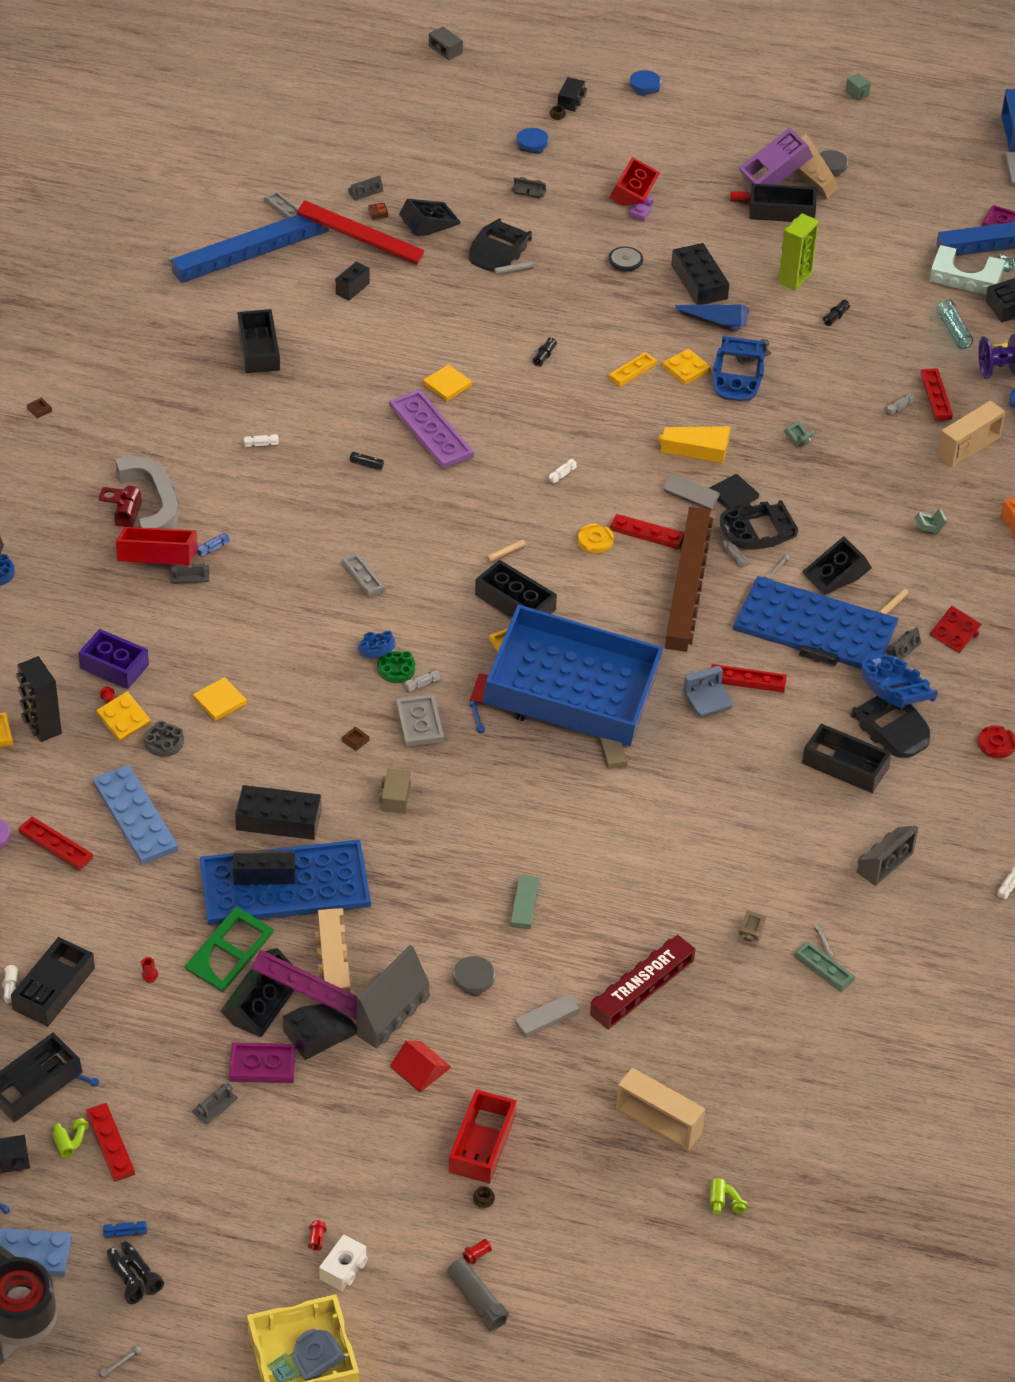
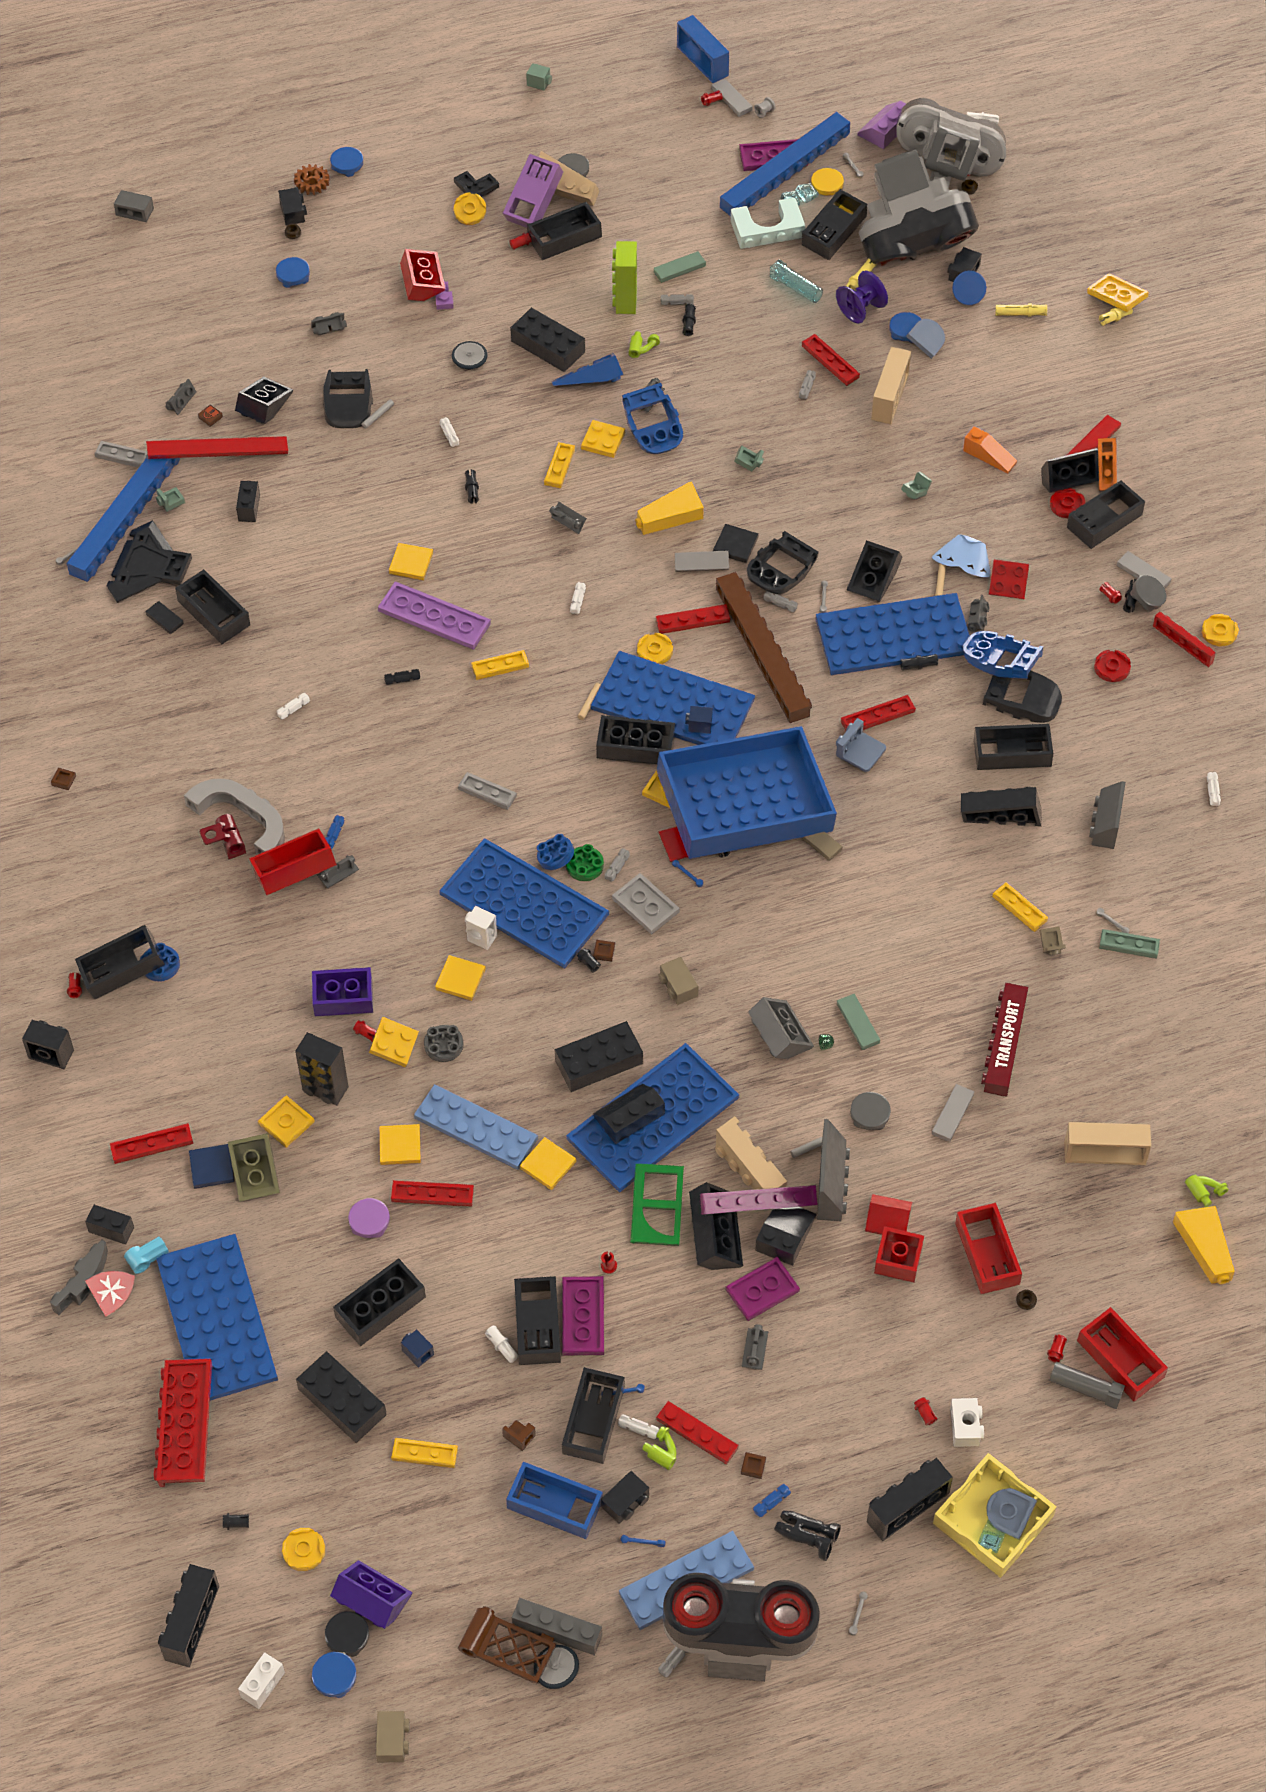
camera: 30 degrees left, 10 degrees up
(63, 795) = (400, 1144): none -> yellow tile
(64, 1108) = (638, 1426): none -> white axle
(96, 1001) = (583, 1315): none -> magenta tile
(134, 1194) = (753, 1465): none -> reddish brown tile
(168, 871) = (548, 1163): none -> yellow tile
(216, 333) = (164, 617): none -> black tile
(235, 1291) = (909, 1499): none -> black brick
(236, 288) = (147, 563): none -> black plate
(264, 667) = (481, 927): none -> white brick
(293, 253) = (169, 499): none -> sand green bracket
(319, 670) = (525, 902): none -> blue plate
(334, 734) = (585, 957): none -> black pin
(398, 1096) = (899, 1254): none -> red brick
(451, 870) = (780, 1028): none -> dark grey slope
(455, 490) = (500, 665): none -> yellow tile
(483, 902) = (825, 1041): none -> clear green hinge
(530, 1292) = (1123, 1354): none -> red piece
(560, 306) = (449, 432): none -> white axle
(582, 583) = (664, 694): none -> blue plate
(582, 603) = (699, 719): none -> dark blue brick
(604, 82) = (311, 179): none -> dark orange gear
(604, 408) = (567, 517): none -> dark grey hinge
(689, 1237) = (1206, 1241): none -> yellow slope
(717, 155) = (469, 208): none -> yellow tile
(735, 144) = (482, 186): none -> black plate
(748, 886) = (1020, 907): none -> yellow tile
(774, 311) = (636, 348): none -> lime plant
(796, 799) = (1002, 806): none -> black wedge
(838, 293) = (677, 299): none -> light grey axle
(862, 271) = (679, 266): none -> sand green tile
(931, 589) = (965, 552): none -> light blue piece
(997, 161) = (712, 97): none -> red pin

